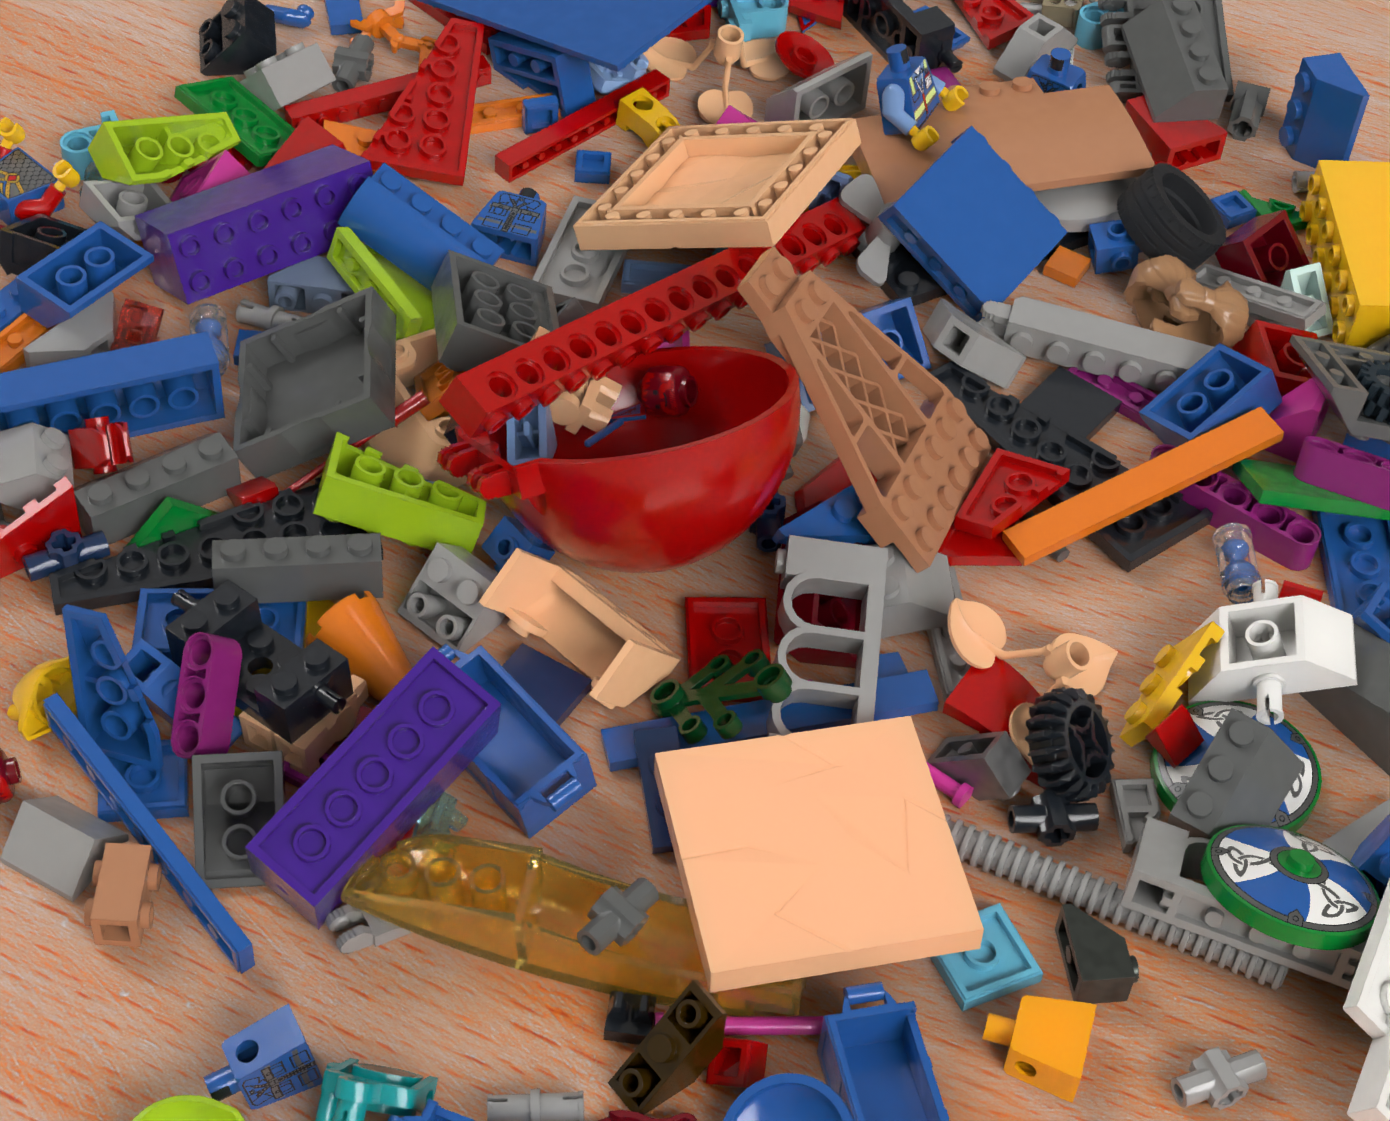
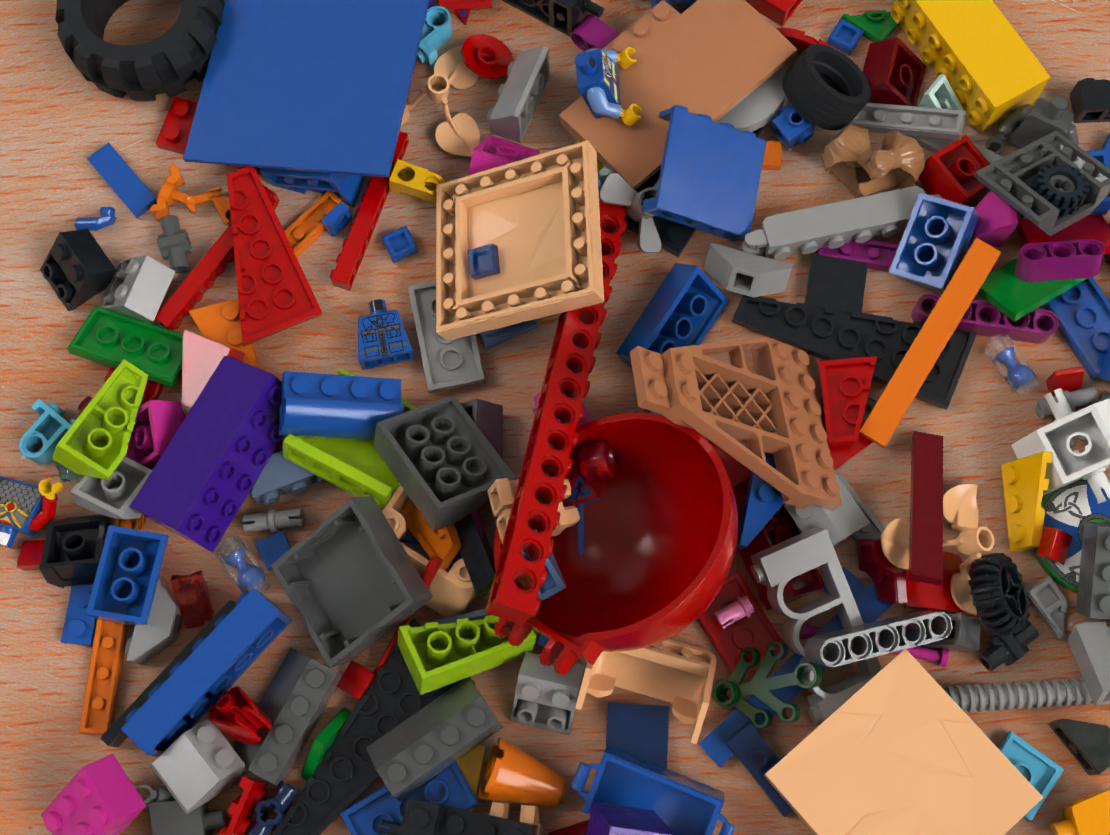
camera: 20 degrees left, 25 degrees up
(670, 189) = (483, 261): none -> clear blue tile
(735, 623) = (734, 611): none -> bright pink pin
(903, 686) = (866, 638): none -> dark grey beam
(936, 659) = (886, 577): none -> dark red tile
(1031, 620) = (926, 509): none -> dark red tile

